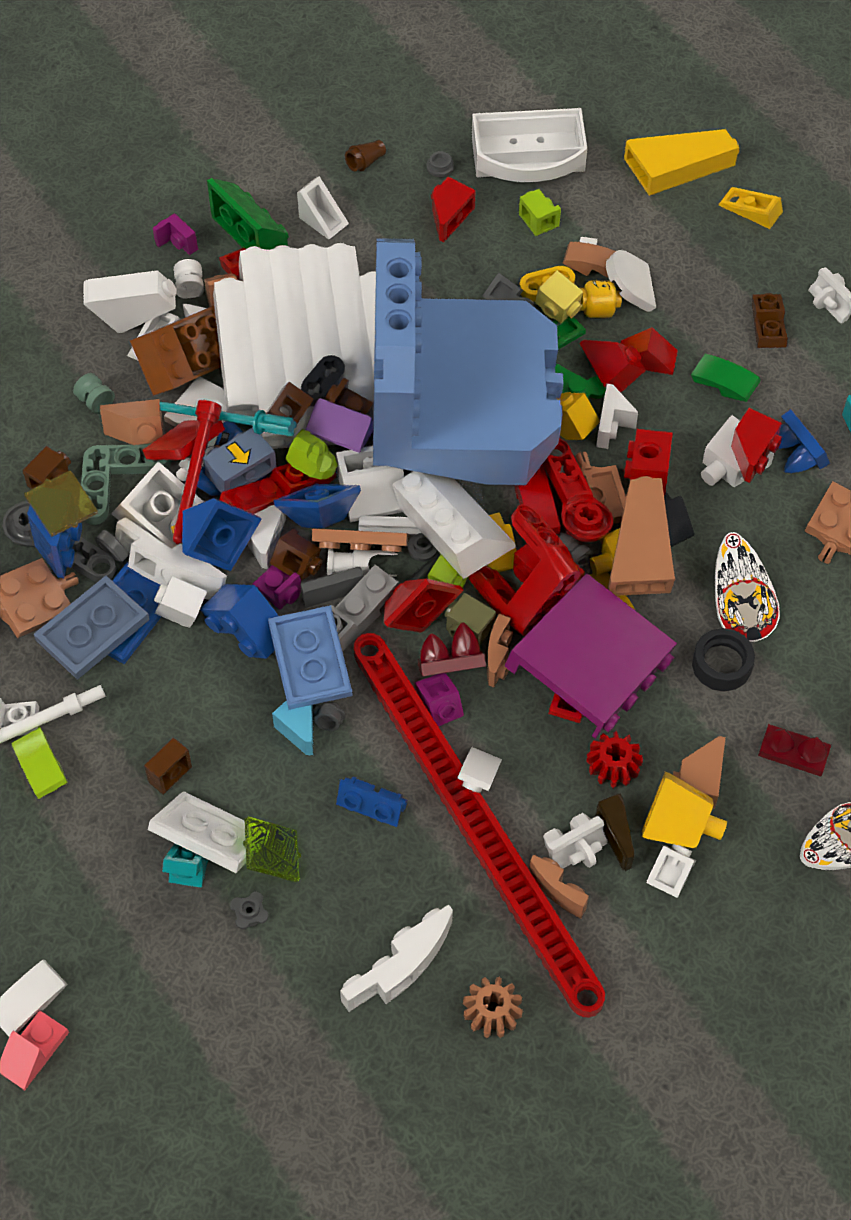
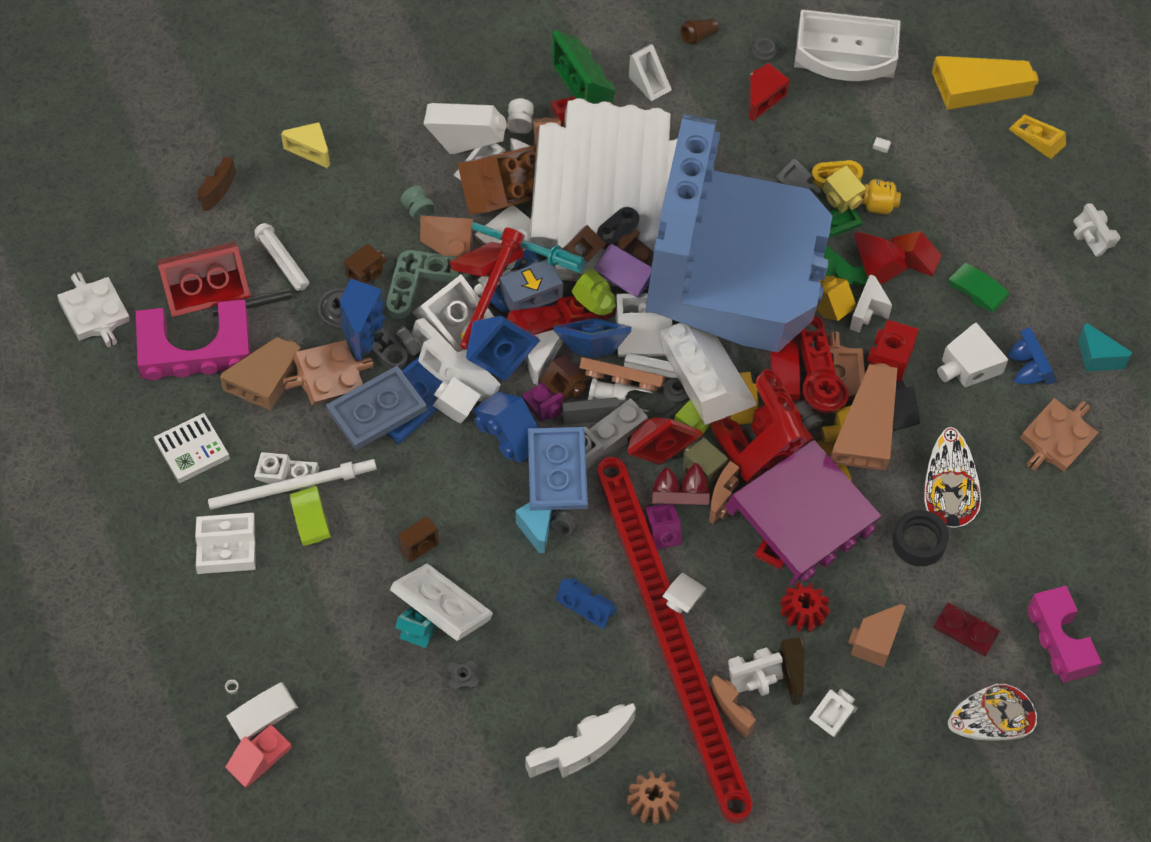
camera: 10 degrees right, 0 degrees up
(61, 503) = (370, 296): clear yellow piece -> none
(178, 232) = (518, 72): magenta bracket -> none
(271, 849) = (492, 627): clear neon green piece -> none
(539, 212) = (843, 108): lime brick -> none
(587, 256) = (877, 156): nougat slope -> none
(633, 279) = (914, 183): white tile -> none
(681, 814) = (852, 665): yellow torso -> none
(753, 441) = (989, 349): red slope -> none
(769, 320) = (1030, 243): reddish brown slope -> none

